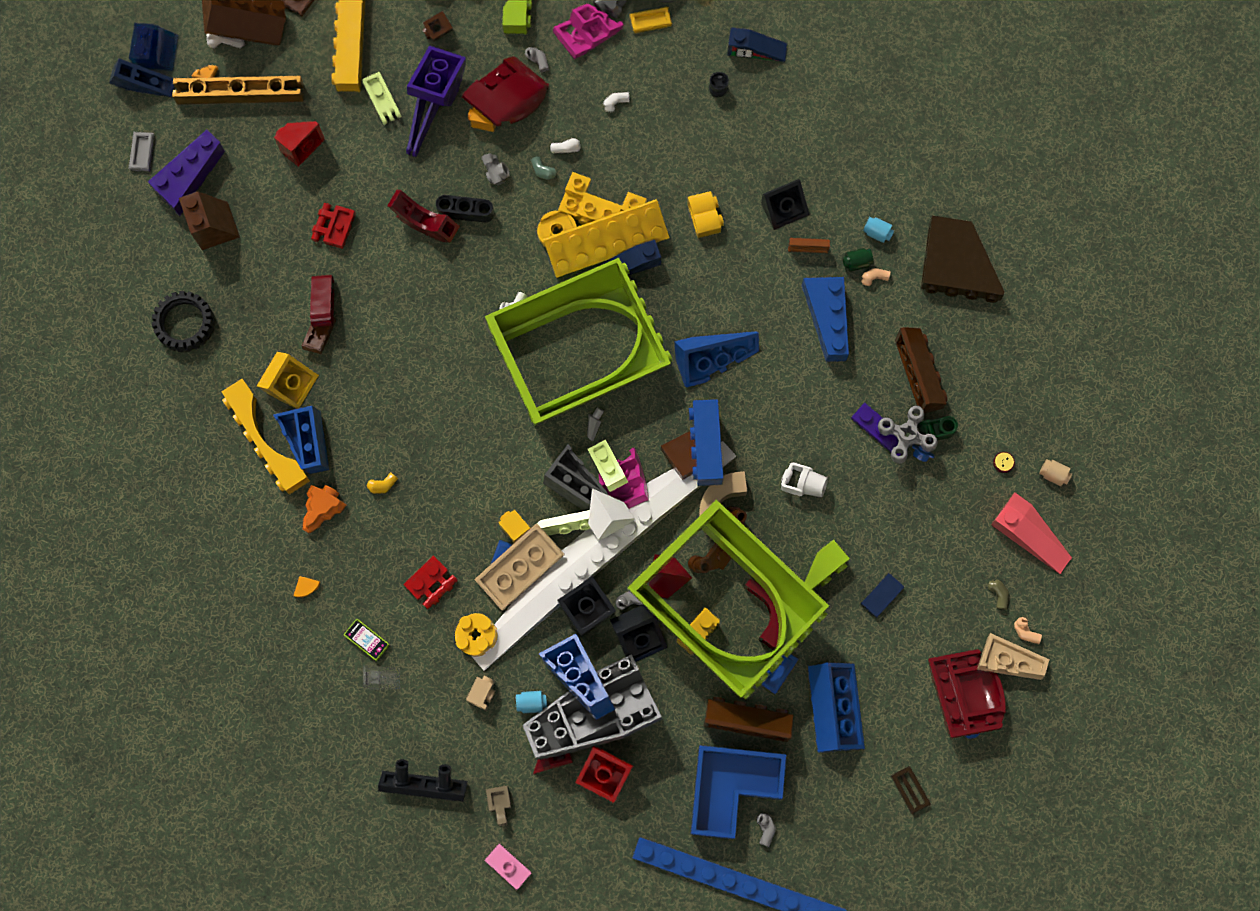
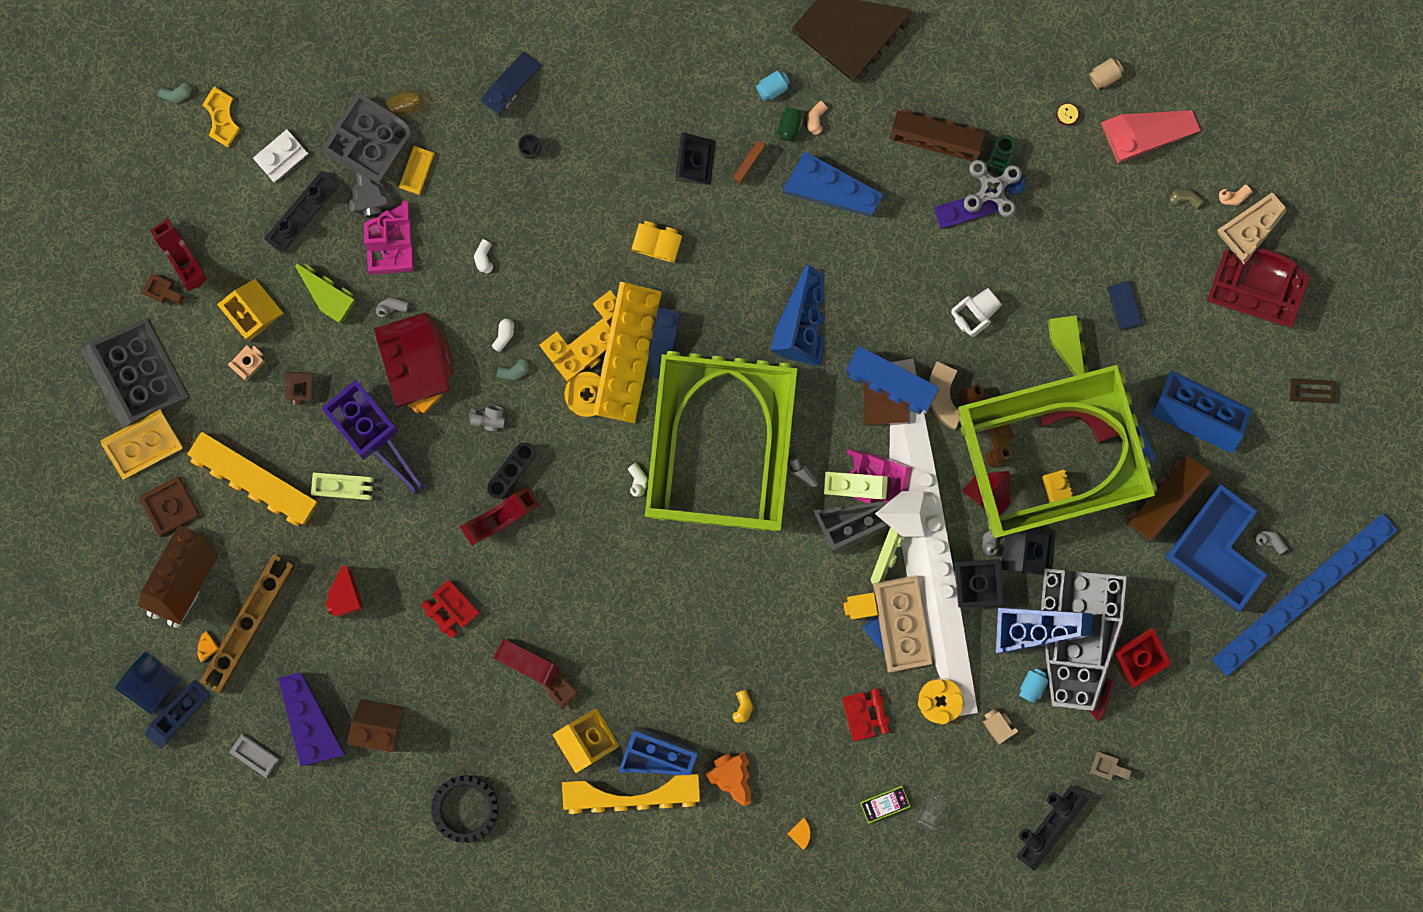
camera: 60 degrees left, 10 degrees up
(508, 866) = (1169, 792): bright pink plate -> none

